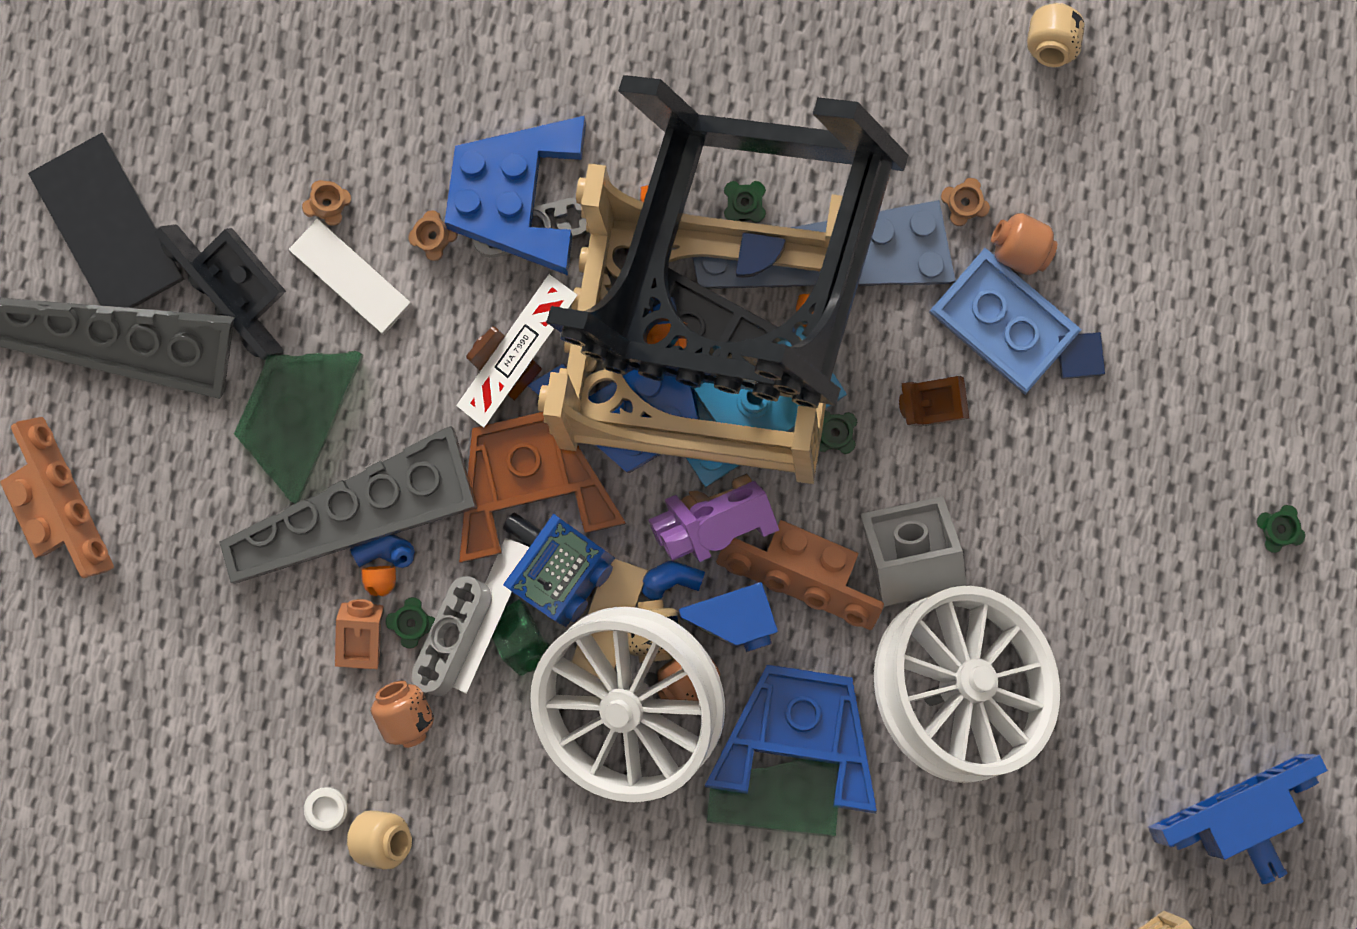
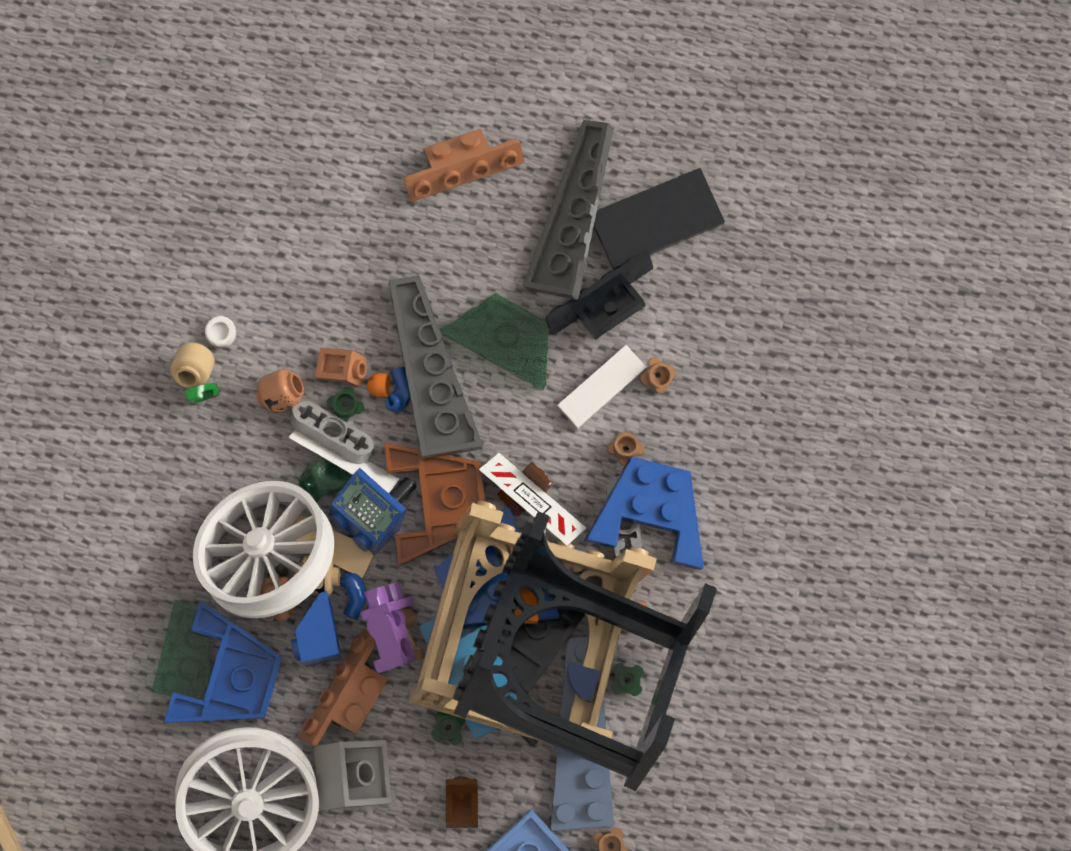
camera: 90 degrees right, 5 degrees down
(415, 821) = (202, 393): none -> green tile

